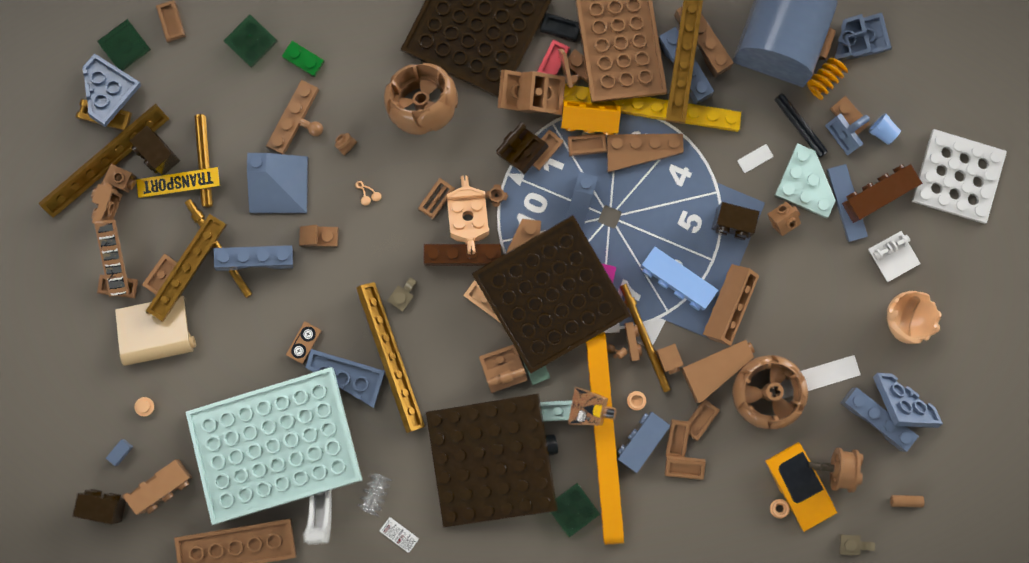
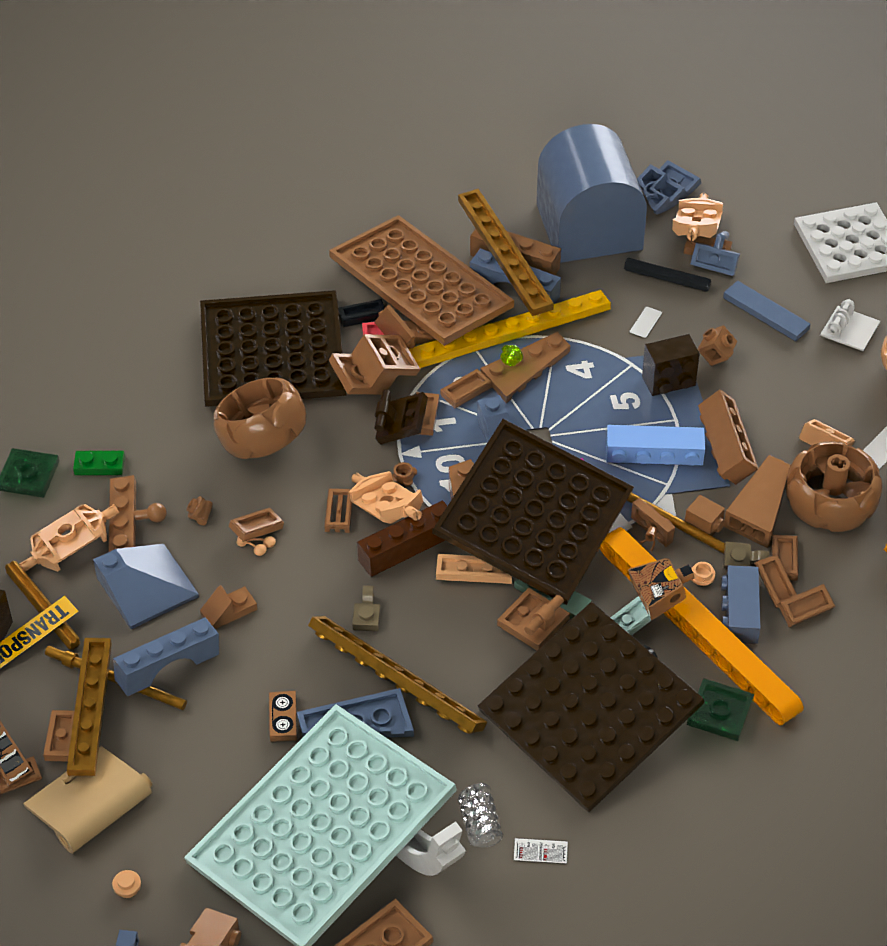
camera: 30 degrees left, 35 degrees down
(260, 119) = (52, 547): none -> light nougat plate
(373, 180) = (256, 524): none -> medium nougat tile
(591, 117) = (453, 358): light orange brick -> none
(631, 142) = (511, 355): none -> clear neon green plate
(670, 403) = (741, 555): none -> dark tan plate
(803, 341) = (816, 432): none -> light nougat slope
(806, 183) = (708, 310): light aqua plate -> none
(825, 76) = (659, 225): light orange piece -> none
(867, 81) = (698, 217): none -> light nougat plate
(881, 193) = (791, 281): reddish brown brick -> none
(885, 129) = (750, 237): light blue piece -> none

